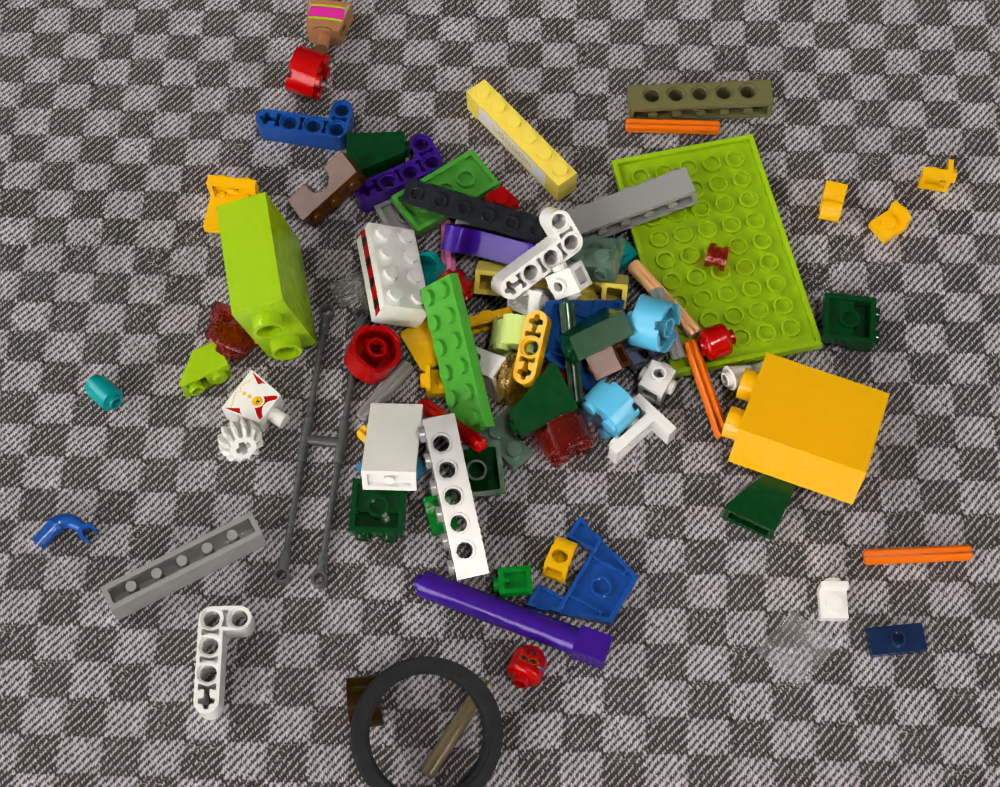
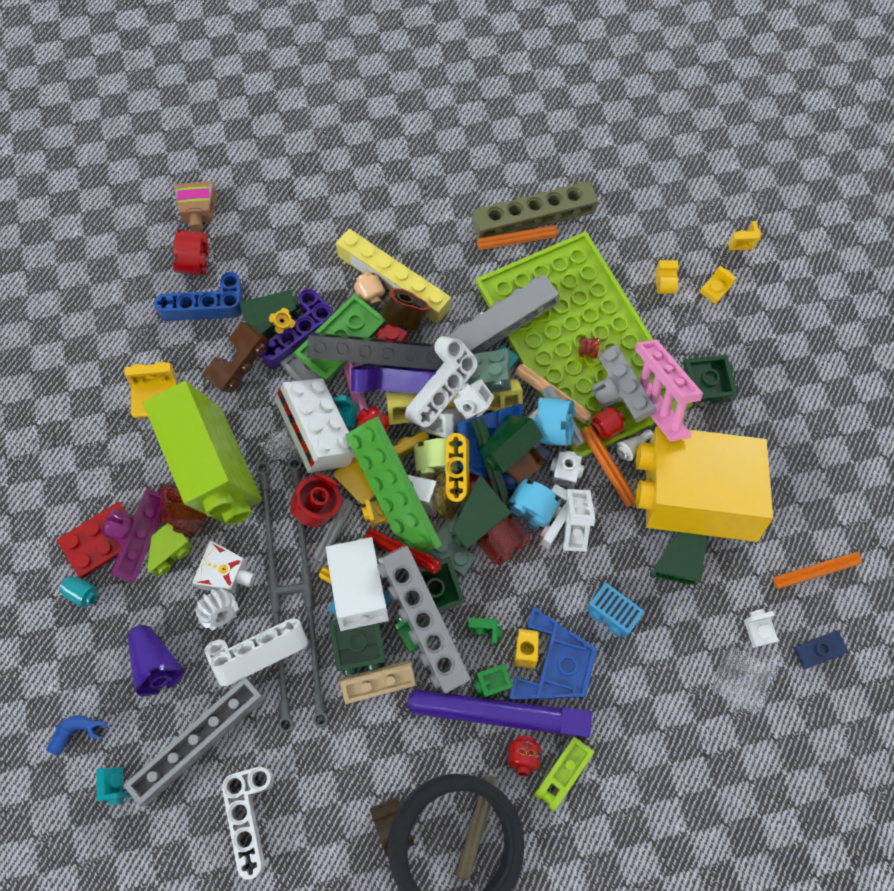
camera: 20 degrees left, 5 degrees up
(87, 590) = (110, 785): none -> teal bracket
(138, 347) = (87, 547): none -> red plate
(159, 479) = (151, 662): none -> dark purple cone
(173, 345) = (133, 534): none -> magenta plate
(269, 491) = (256, 652): none -> white beam
(389, 555) = (377, 682): none -> tan tile
(390, 155) = (282, 314): none -> yellow plate
(491, 148) = (369, 288): none -> light nougat head
(520, 524) = (481, 626): none -> green bracket
(522, 176) = (405, 309): none -> dark brown piece
(566, 696) = (564, 772): none -> lime plate
(652, 436) = (578, 520): none -> white bracket
(669, 542) = (614, 611): none -> dark azure brick
(741, 304) = (622, 386): none -> light grey plate
(783, 313) = (677, 386): none -> bright pink fence

